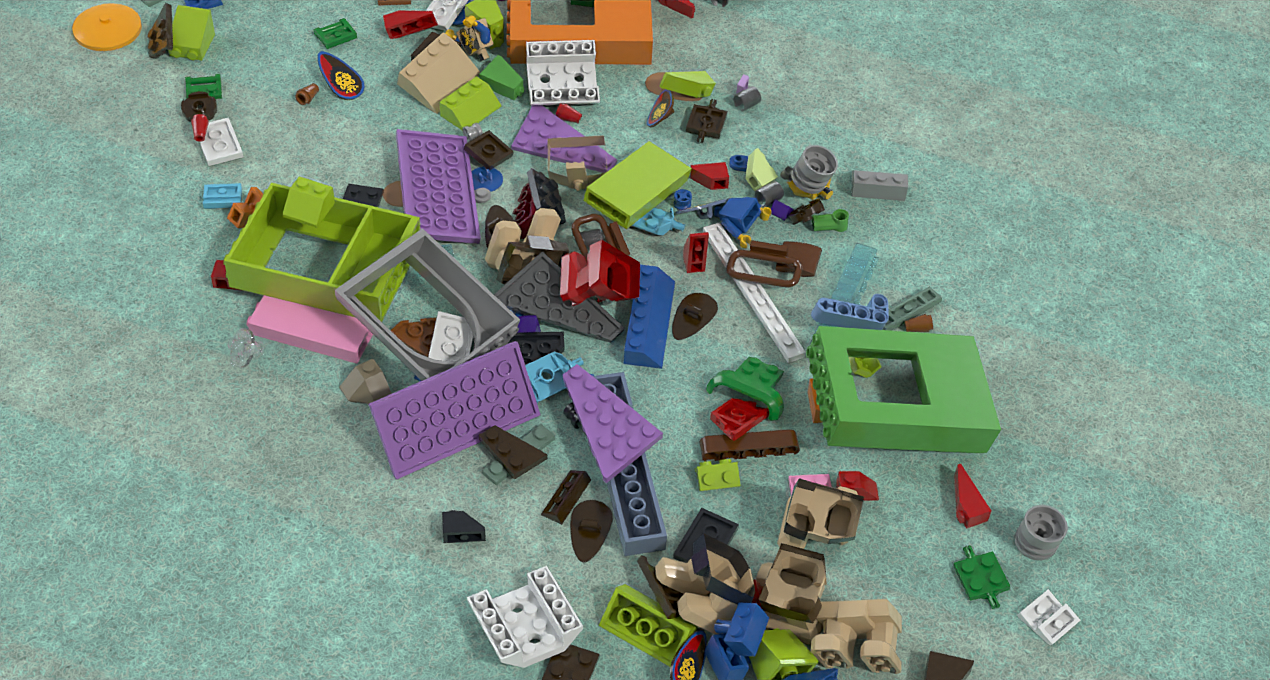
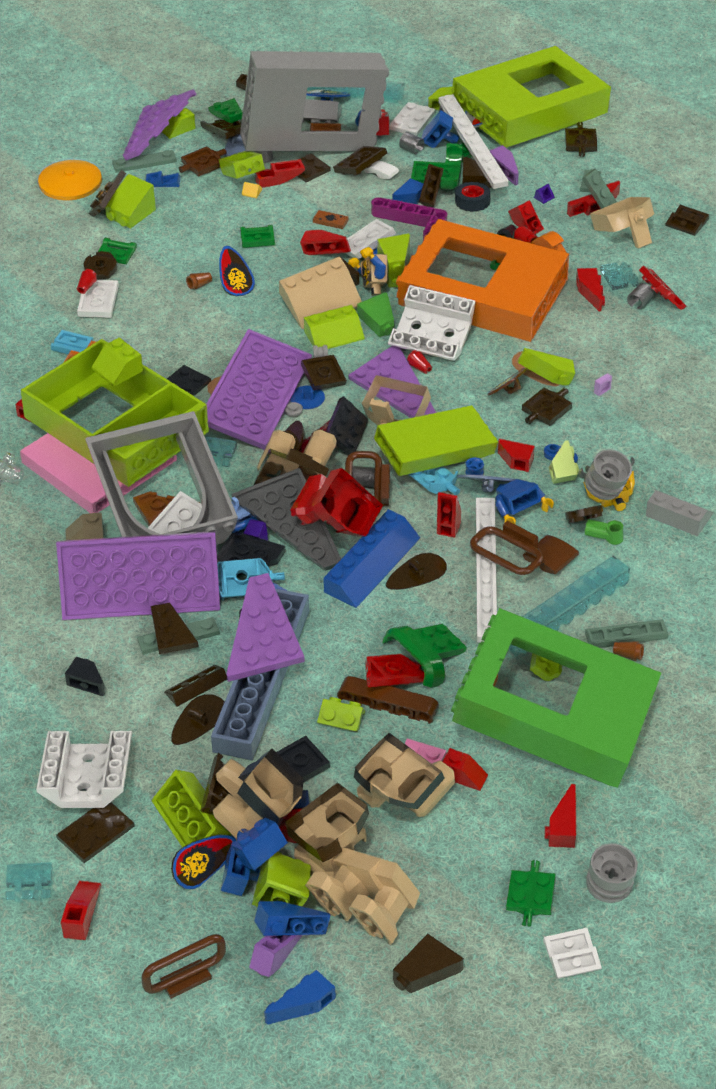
camera: 30 degrees right, 5 degrees down
(749, 97) = (600, 396): flat silver piece -> none
(769, 193) = (561, 487): flat silver piece -> none
(780, 210) = (564, 505): dark purple slope -> none
(852, 315) = (554, 614): medium blue beam -> none

